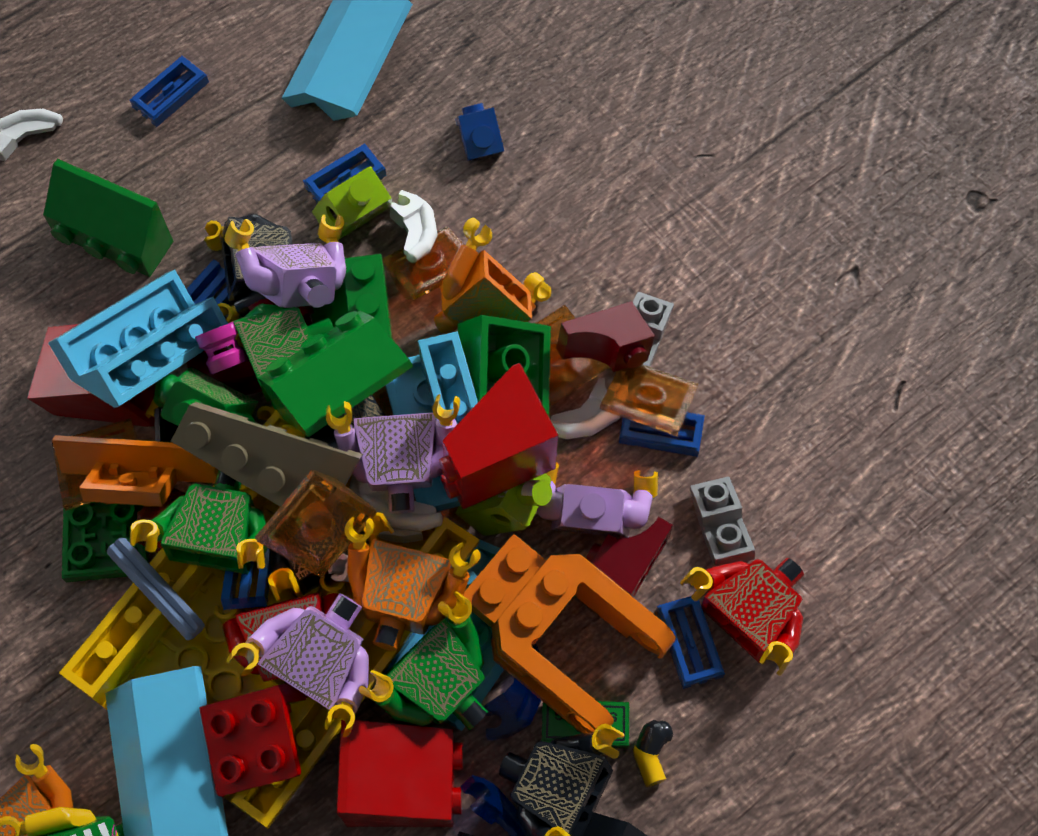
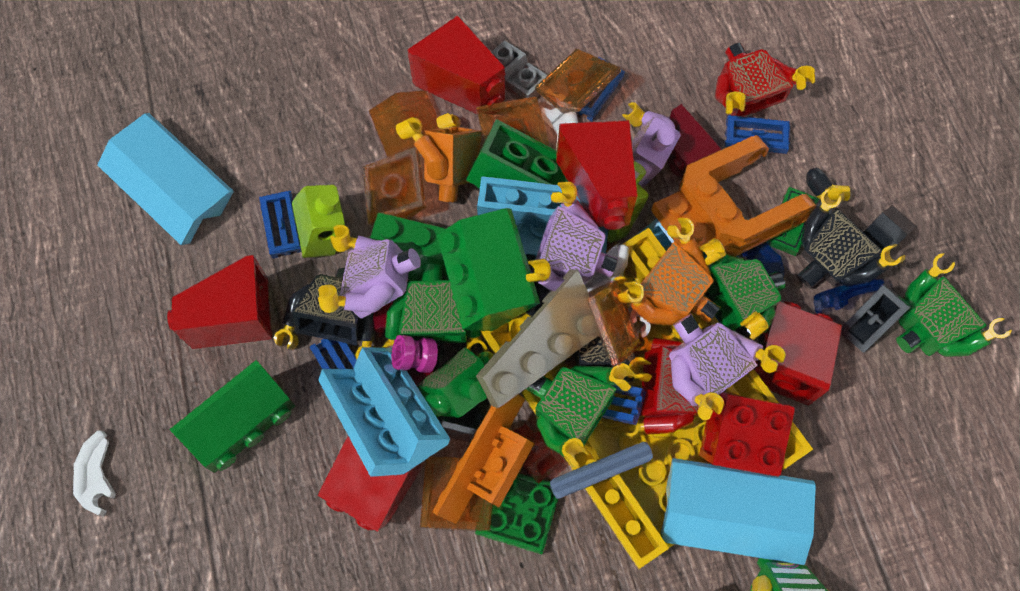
camera: 70 degrees left, 5 degrees up
(172, 94) = (132, 356): blue tile -> none
(220, 161) = (224, 307): none -> red slope
(419, 222) = (358, 182): white piece -> none
(479, 131) = (293, 110): blue bracket -> none
(526, 244) = (398, 109): none -> clear orange slope
(605, 257) = (457, 67): none -> red slope
(609, 336) = (525, 82): dark red arch -> none
(722, 521) = (678, 81): light grey slope -> none

